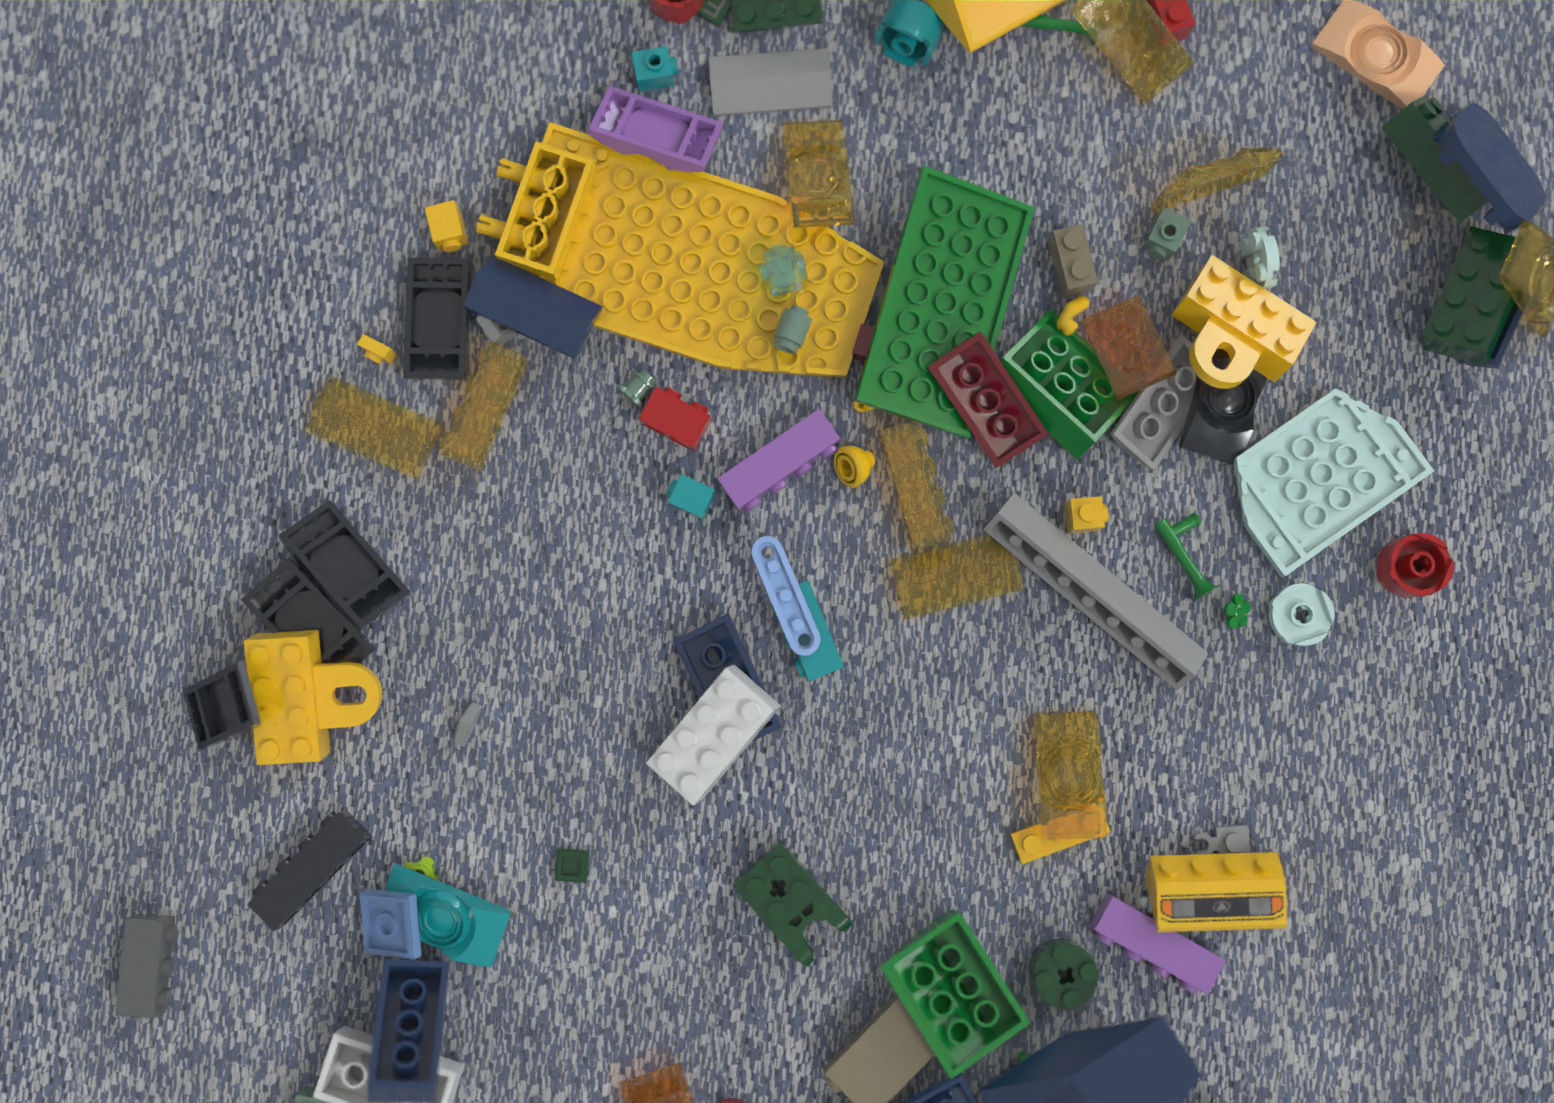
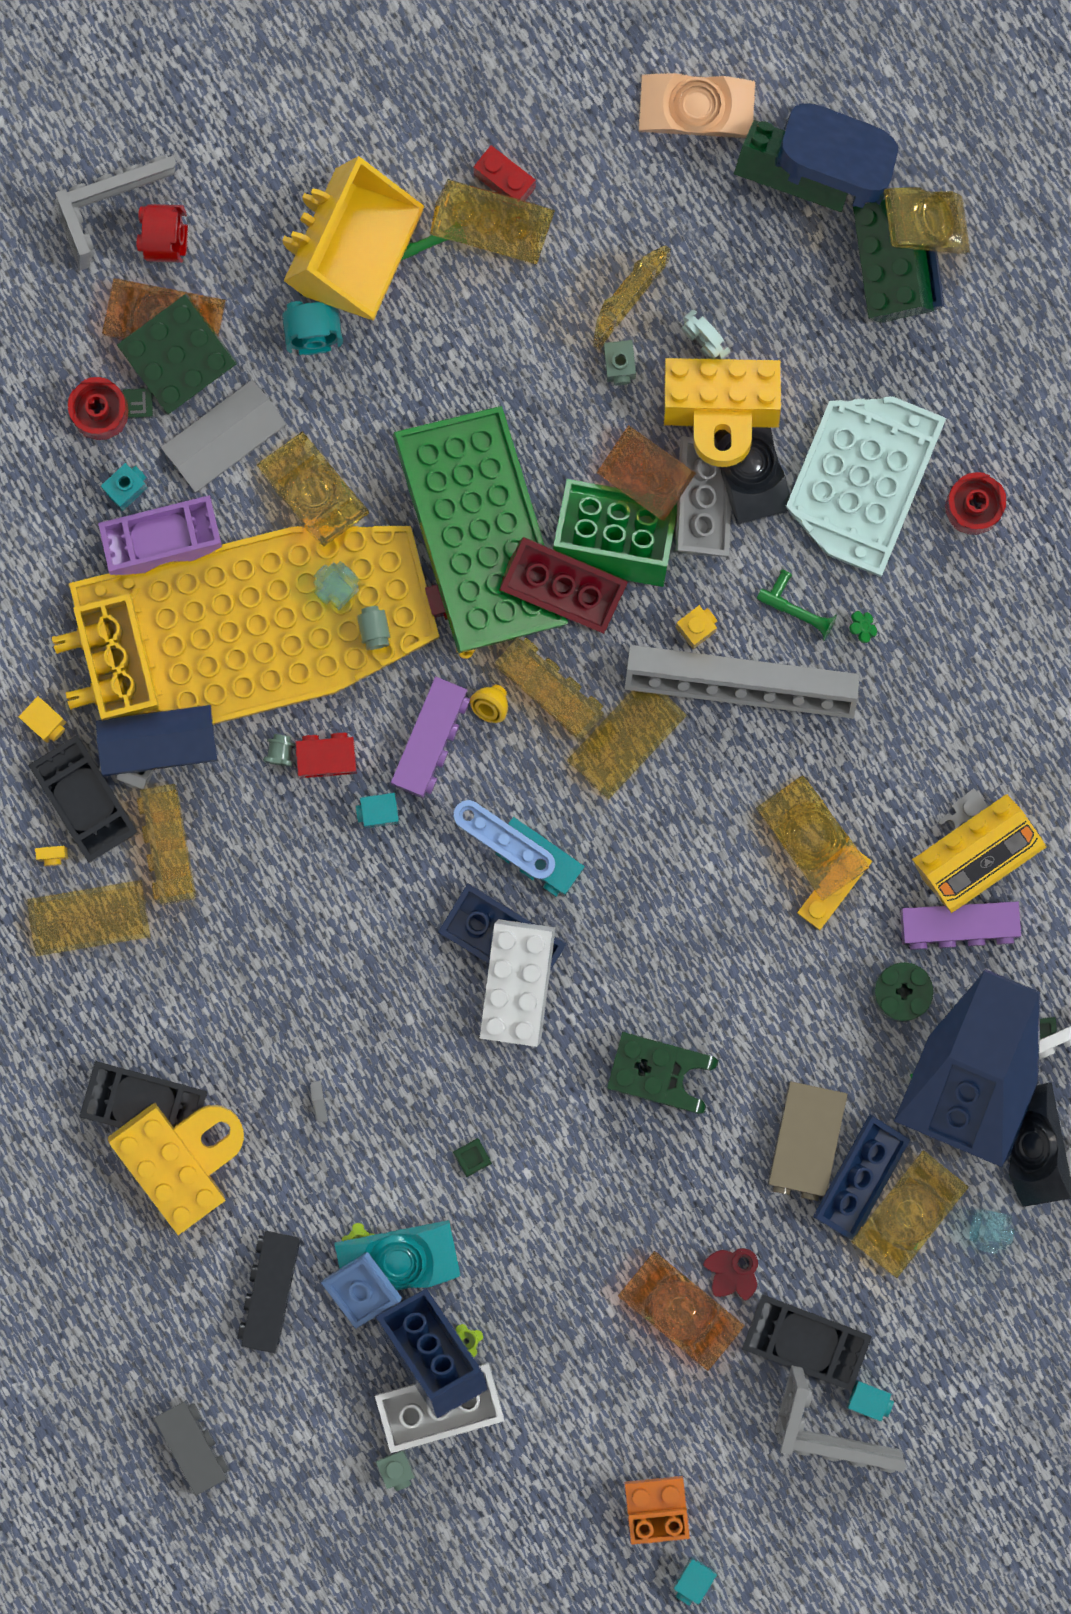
camera: 35 degrees left, 0 degrees up
(222, 706) = (121, 1206): black slope -> none
(343, 565) = (141, 1040): black slope -> none
(466, 1031) = (473, 1336): none -> lime plate
(954, 993) = (827, 1058): green slope -> none
(1065, 321) = (582, 472): yellow arm -> none
(1072, 261) = (559, 431): dark tan brick -> none
(1308, 598) = (915, 613): light aqua plate -> none

